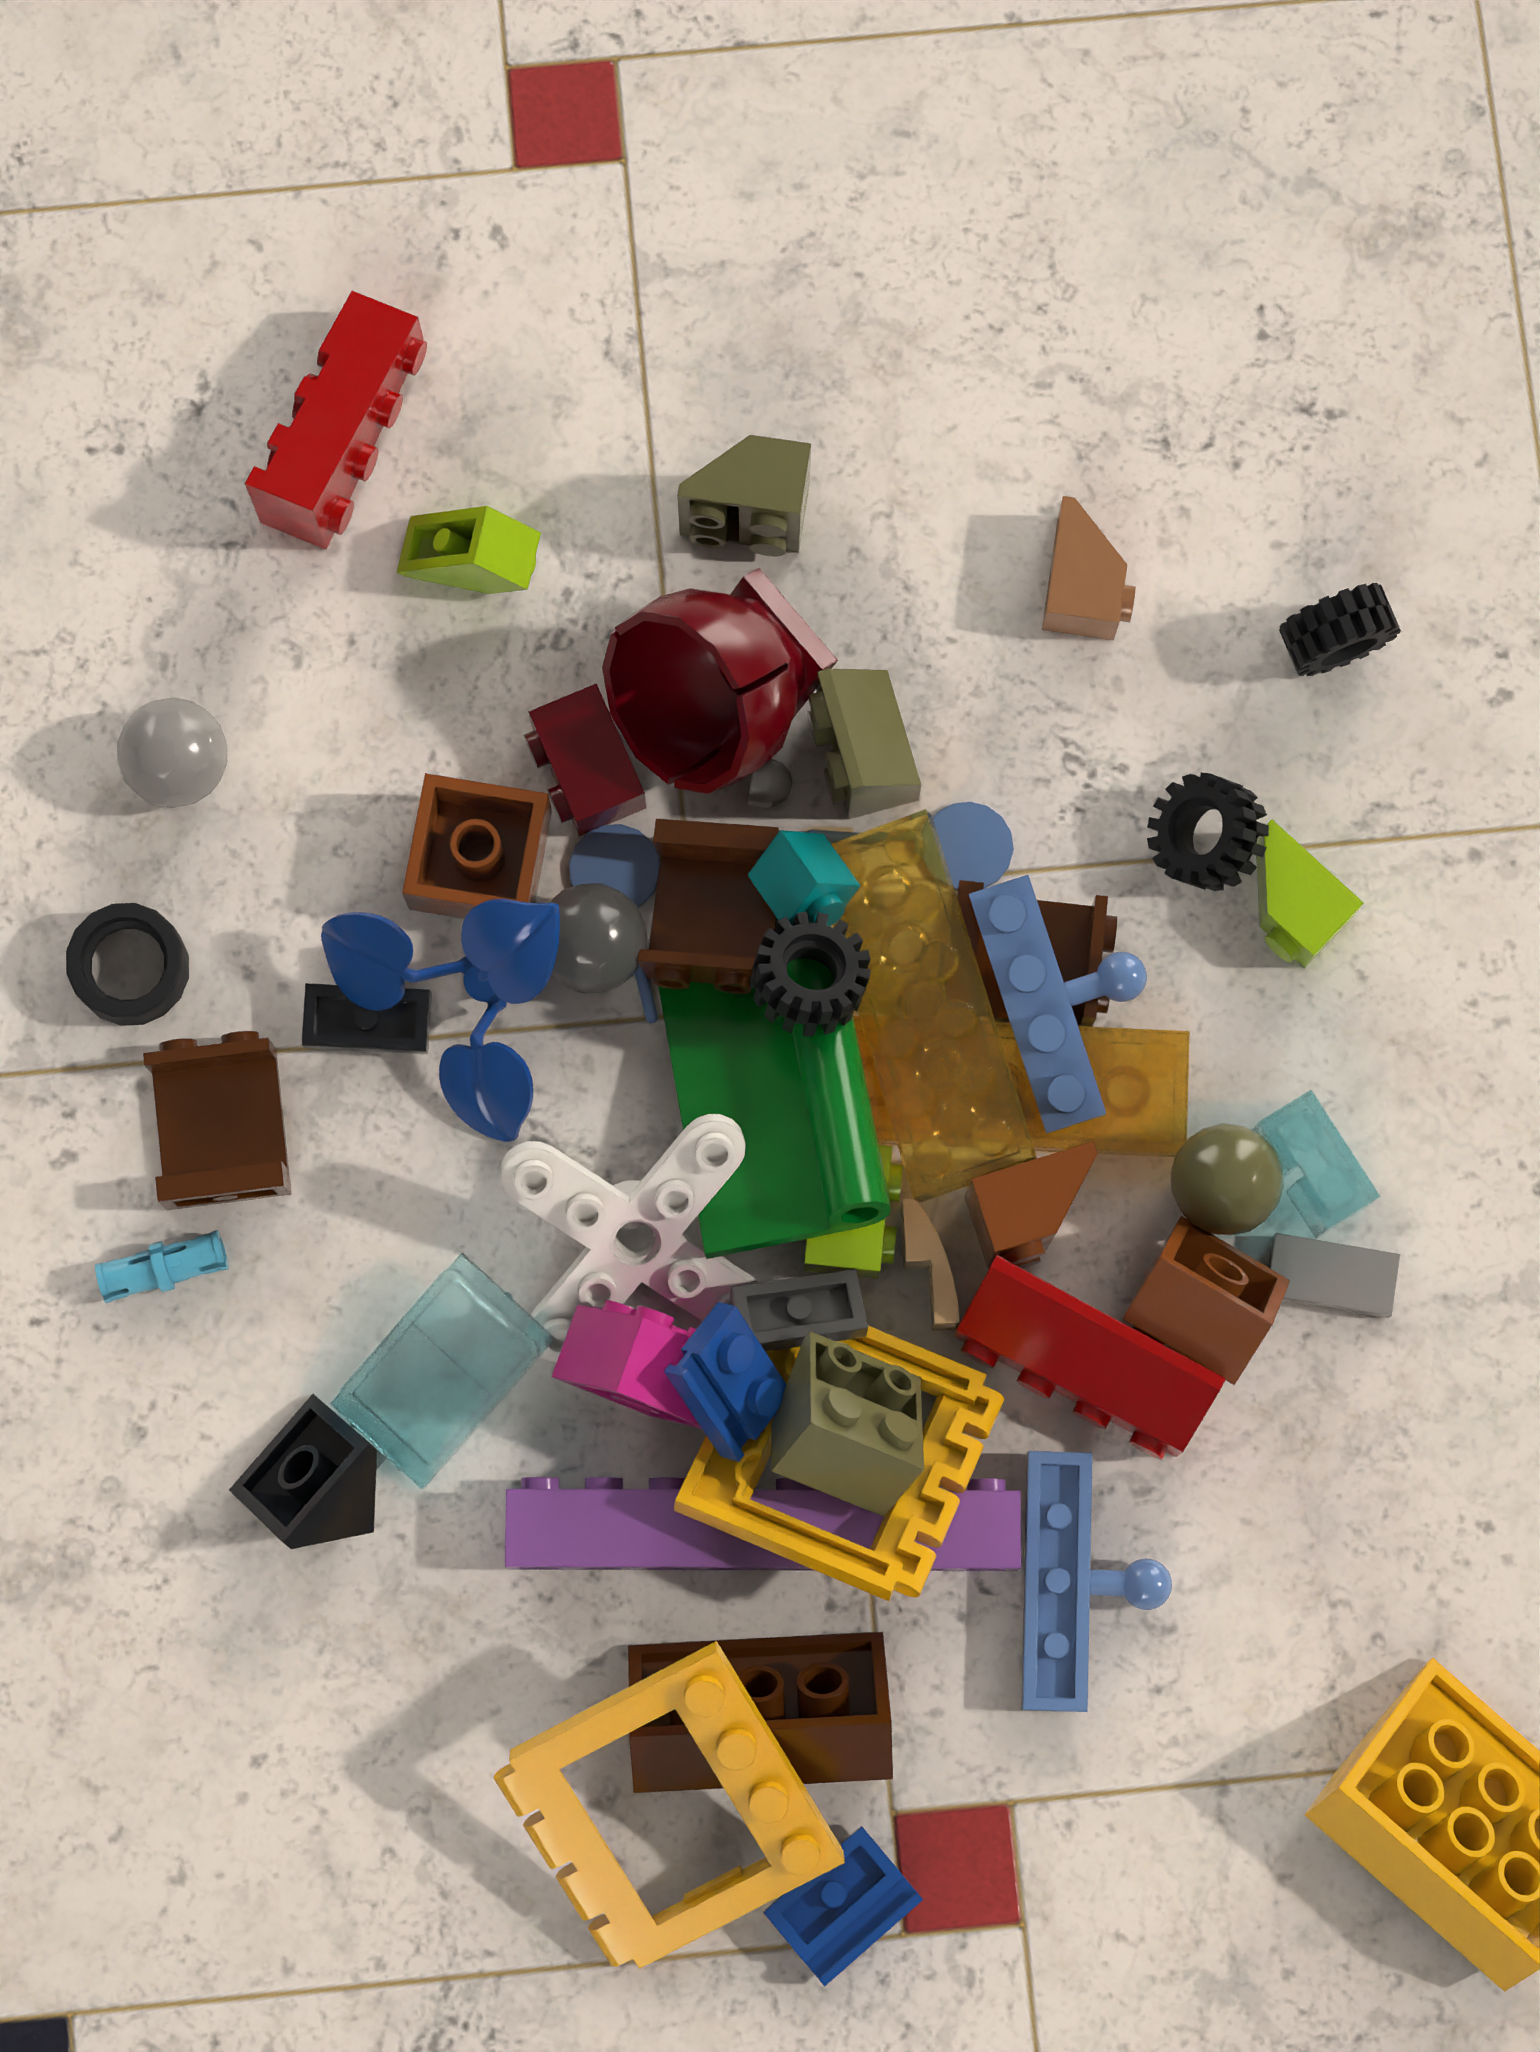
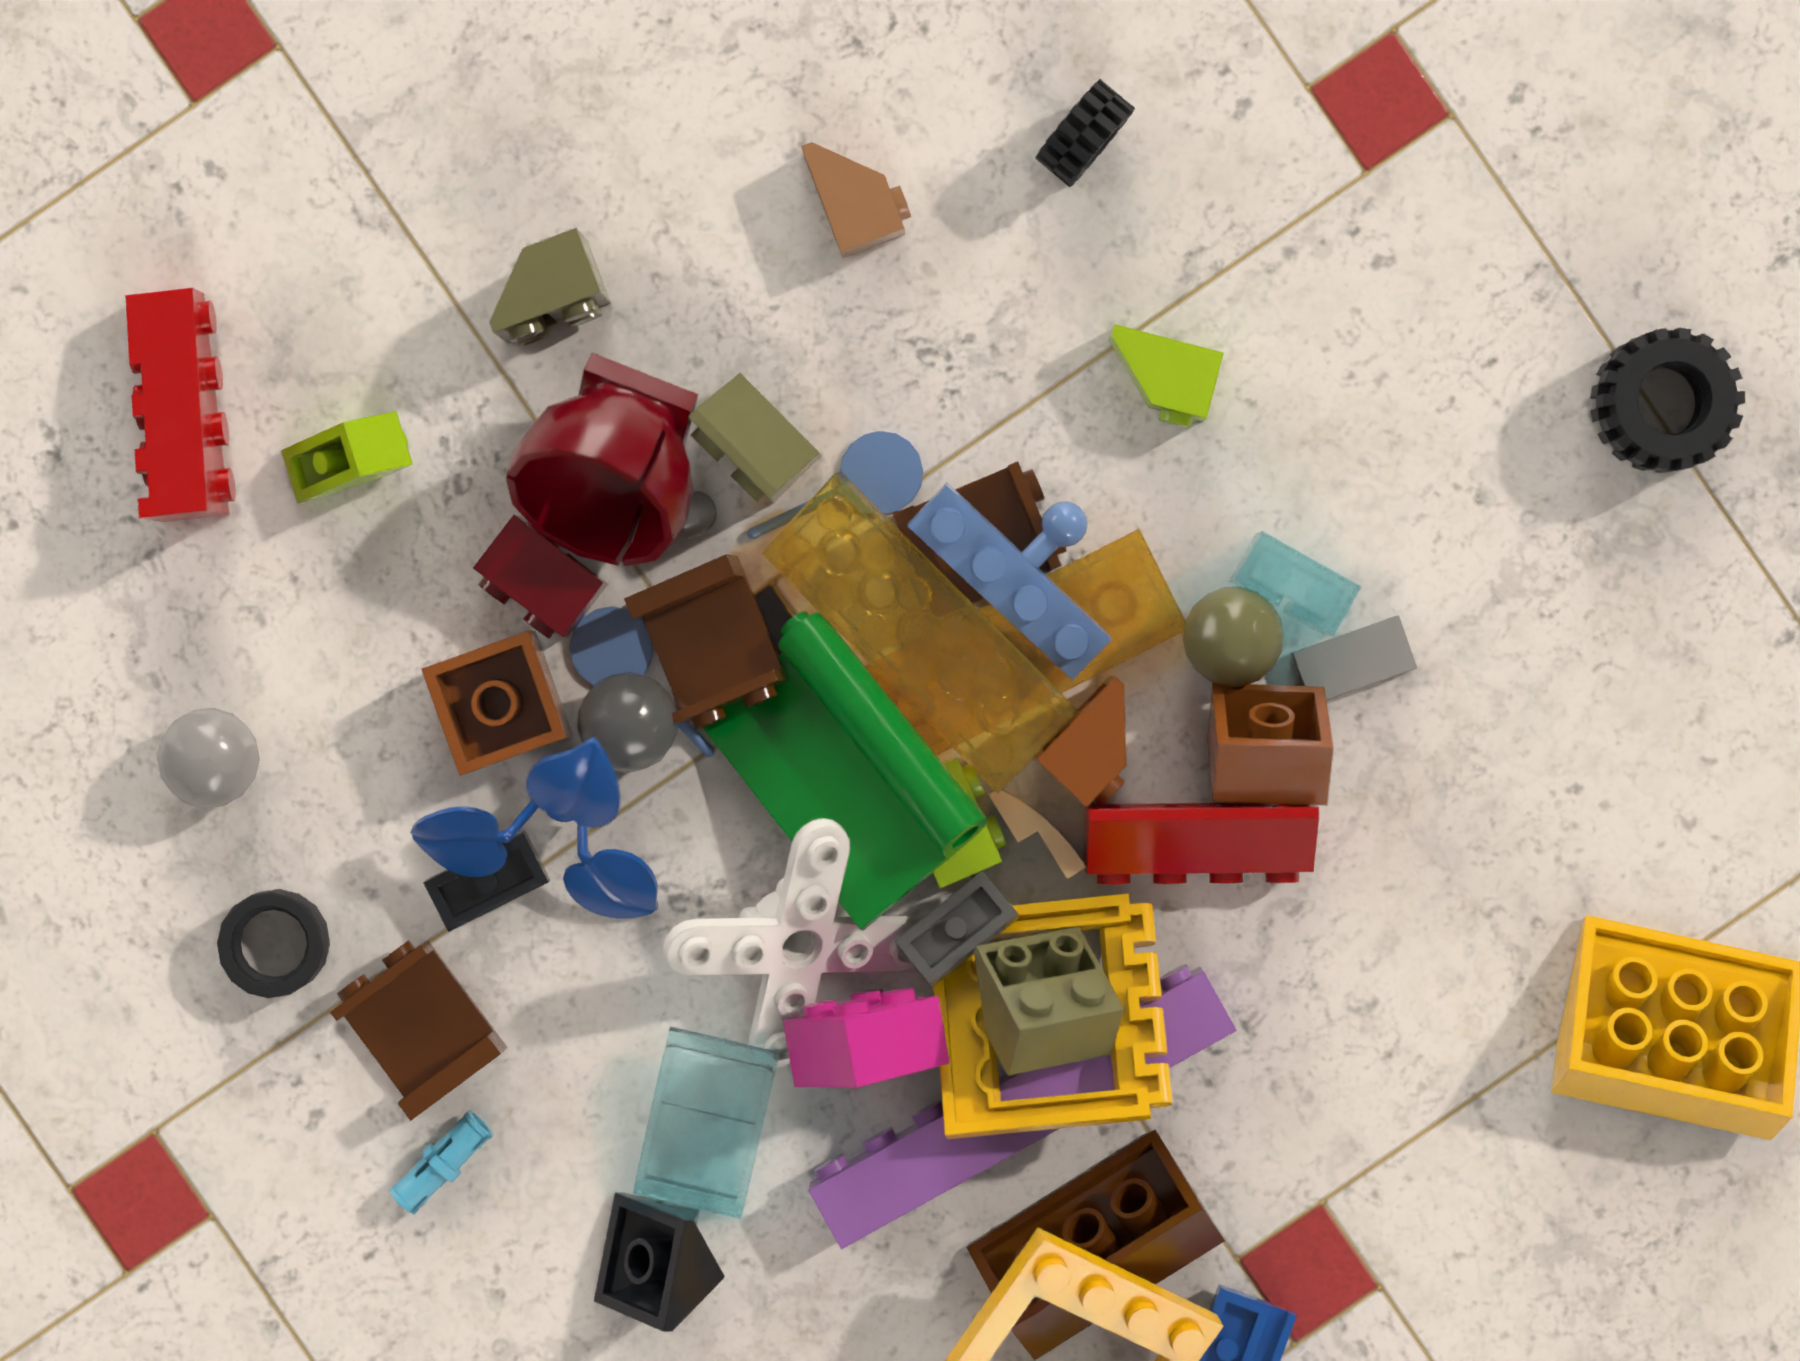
camera: 30 degrees left, 10 degrees up
(727, 1381) = (935, 1024): blue plate -> none
(803, 875) = (771, 586): teal brick -> none
(817, 943) = (812, 633): black tyre -> none
(1061, 1582) = (1272, 1017): medium blue plate -> none
(1179, 821) = (1043, 373): black tyre -> none

